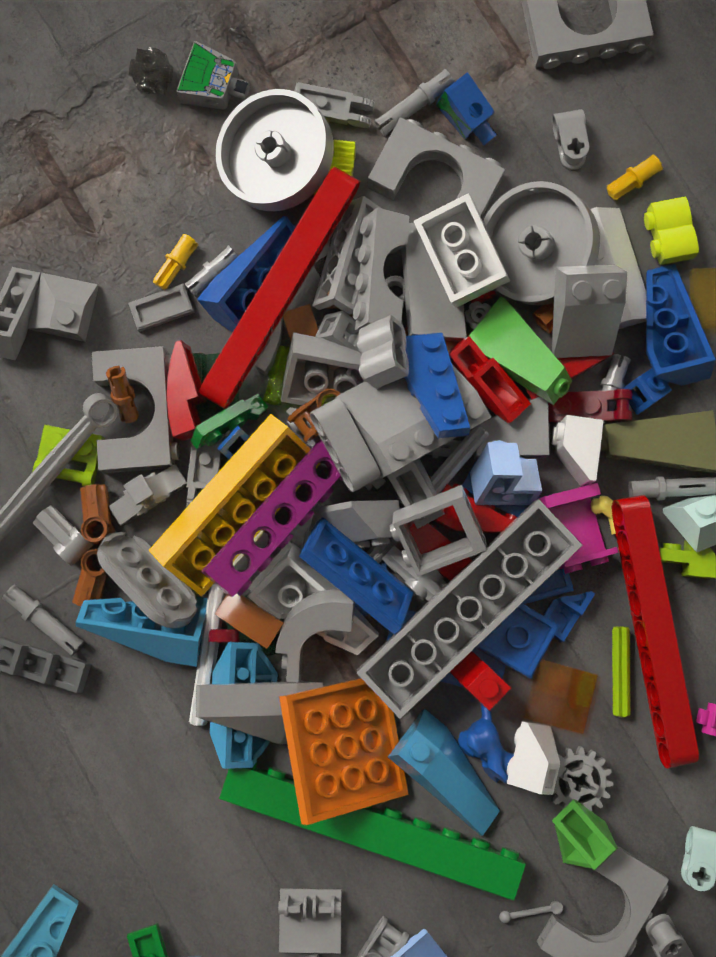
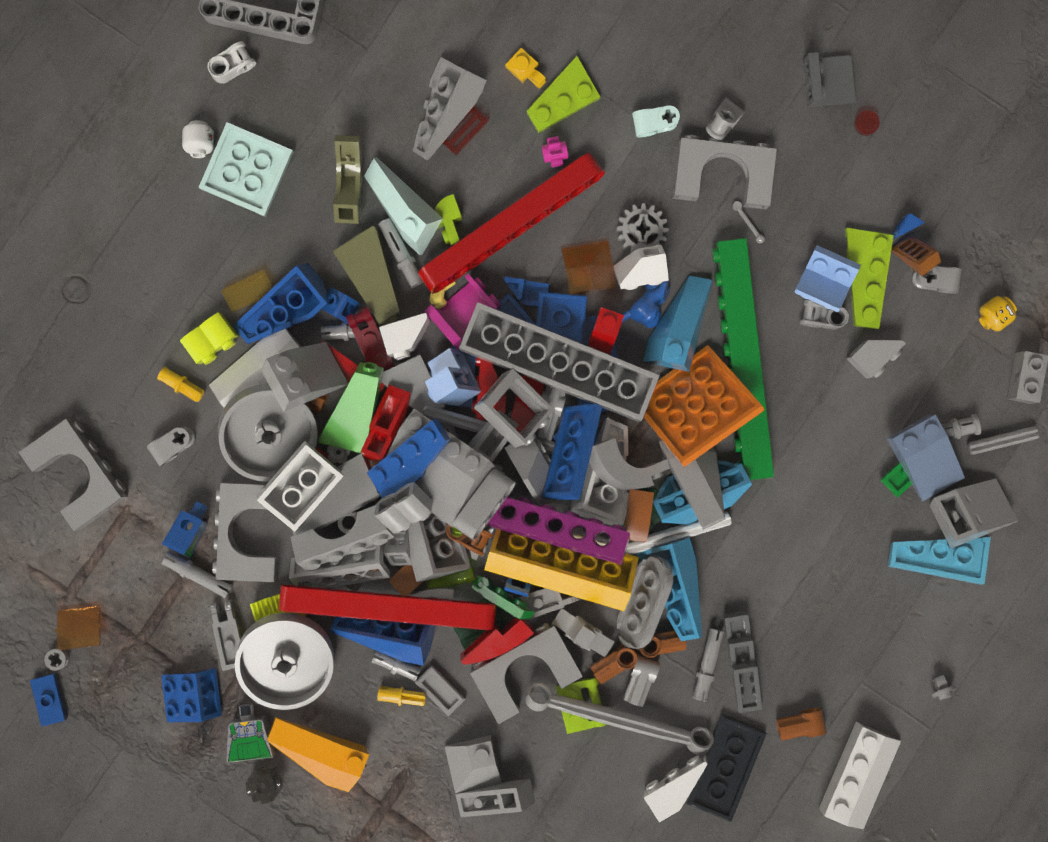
camera: 120 degrees left, 5 degrees up
(122, 394) = (519, 686): dark orange pin -> none
(149, 150) = (321, 754): none -> light orange wedge
(223, 635) = (659, 528): dark red tile -> none
(284, 39) = (191, 696): none -> blue bracket
(310, 921) = (827, 373): light grey hinge -> none
(583, 836) = (679, 210): bright green slope -> none
(621, 671) = (551, 233): lime axle -> none

